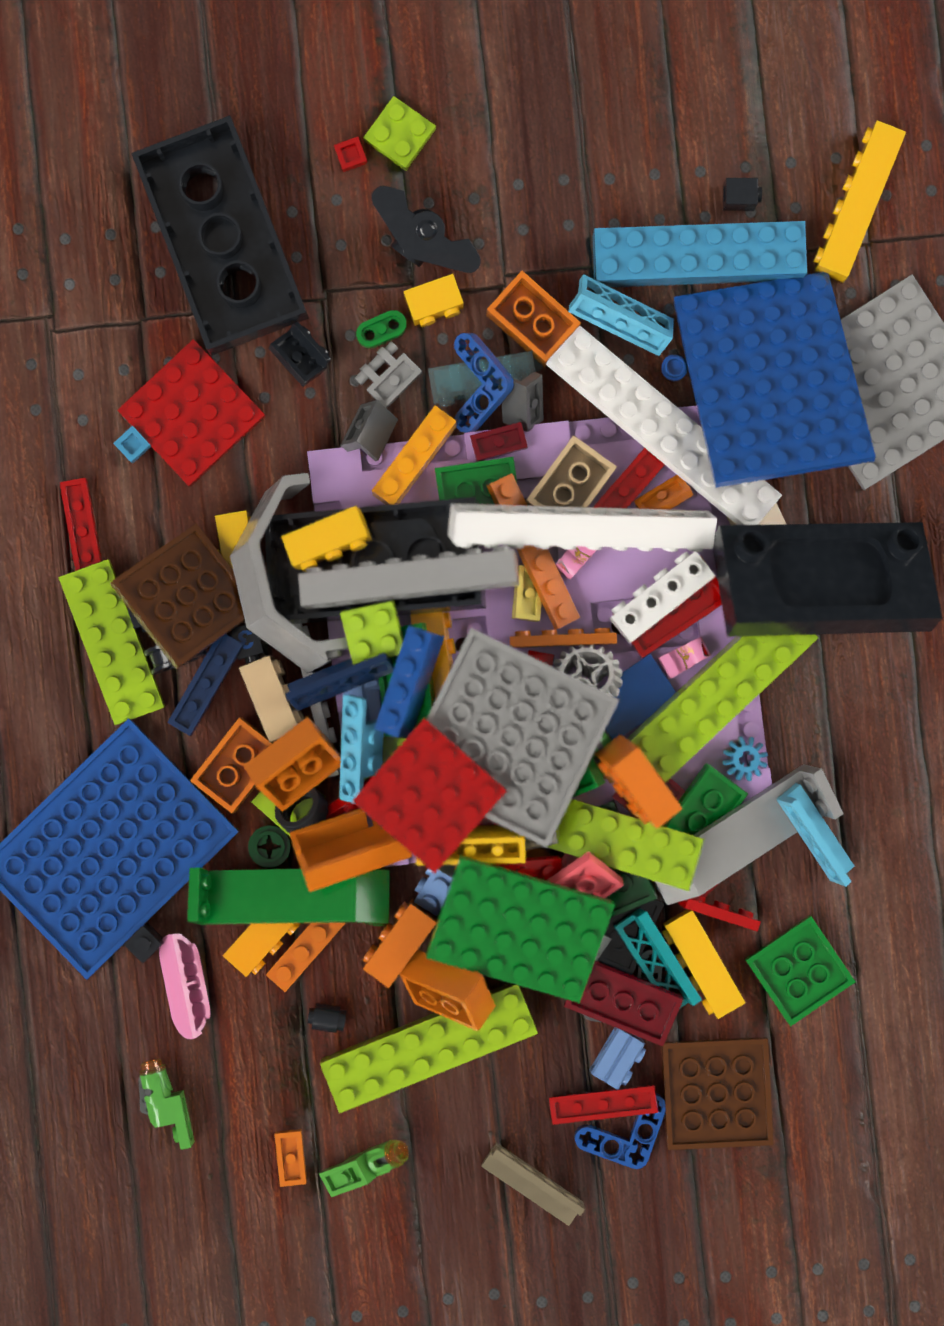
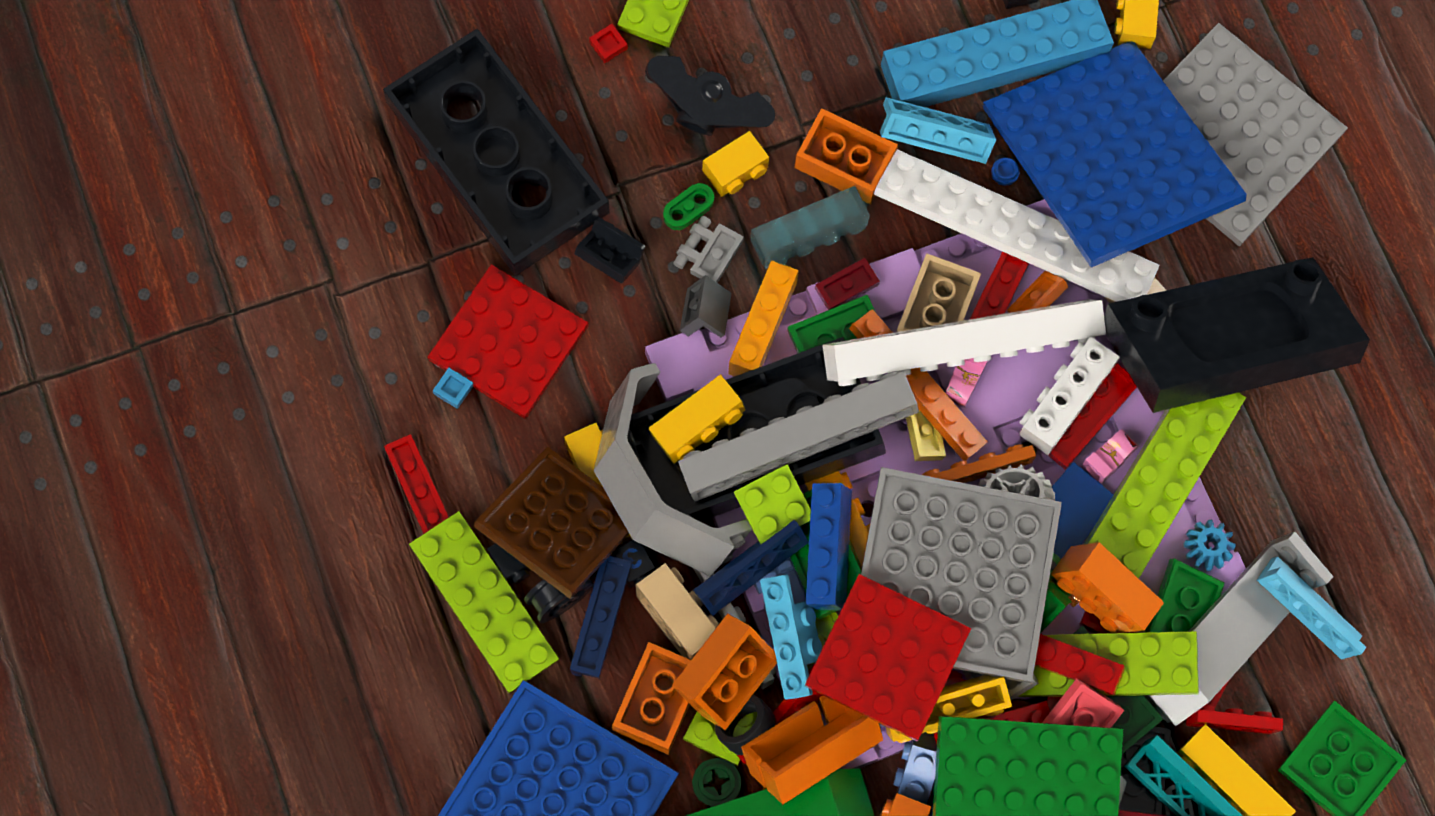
camera: 15 degrees left, 15 degrees down
(489, 384) = (821, 230): blue beam -> none
(524, 402) = (859, 236): dark grey panel -> none
(595, 837) = (1079, 664): none -> red plate

